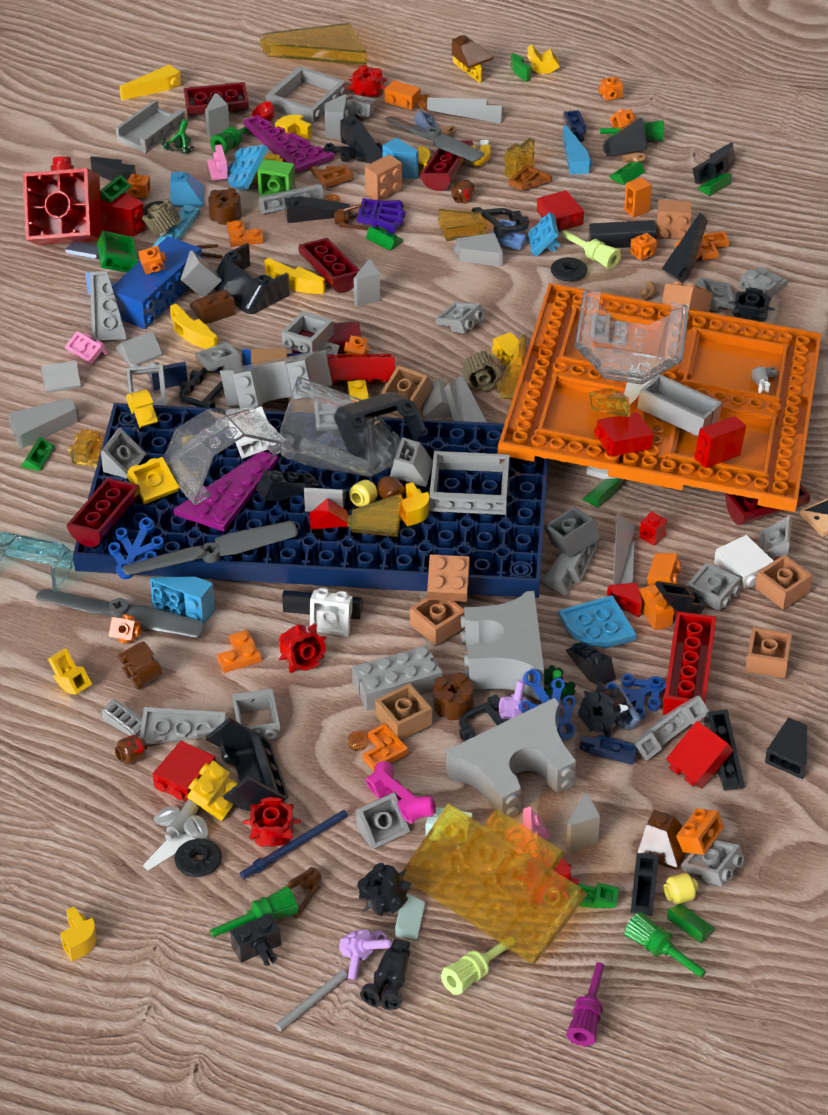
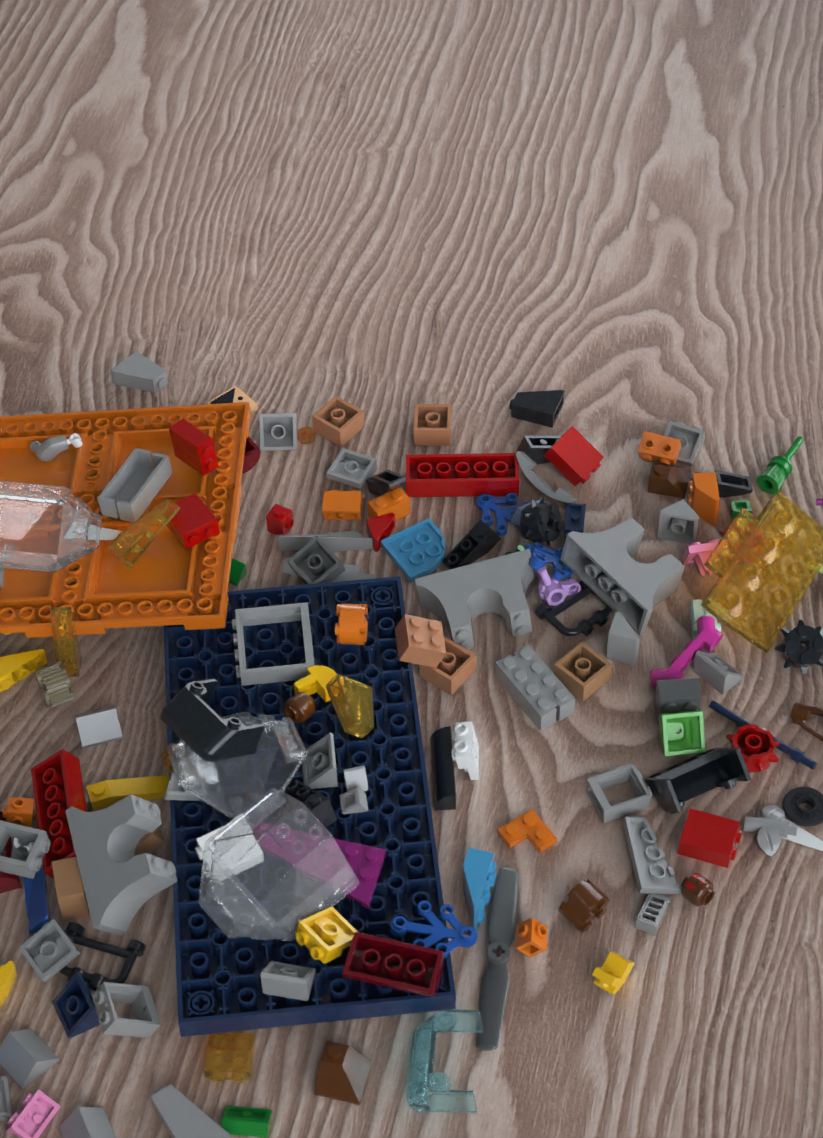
camera: 100 degrees left, 5 degrees up
(53, 506) = (342, 1073): none -> reddish brown slope
(141, 404) = (194, 975): yellow brick -> none
(210, 788) = (729, 803): yellow plate -> none
(225, 545) = (438, 867): dark grey piece -> none
(282, 515) = (353, 801): none -> light grey slope
(301, 518) = (355, 778): none -> light grey slope
(302, 647) = (523, 764): red brick -> none
(305, 768) = (682, 733): none -> bright green brick
(328, 515) = (348, 755): red slope -> none
(342, 773) = (677, 696): none -> dark grey brick
(358, 740) = (618, 710): clear orange tile -> none
(363, 493) = (311, 729): light yellow head -> none
(387, 749) = (627, 681): orange plate -> none
(410, 385) = (96, 746): medium nougat brick -> none
(412, 463) = (258, 695): light grey slope -> none
(431, 744) = (622, 641): none -> light grey slope
(453, 695) = (548, 638): reddish brown brick -> none
(462, 402) = (115, 692): light grey wedge -> none
(471, 526) = (351, 624): none -> orange brick
(615, 856) = (704, 496): none -> orange slope
(680, 888) = (719, 459): light yellow head -> none
(690, 922) = (746, 455): green slope -> none
(742, 559) = (311, 453): white brick -> none

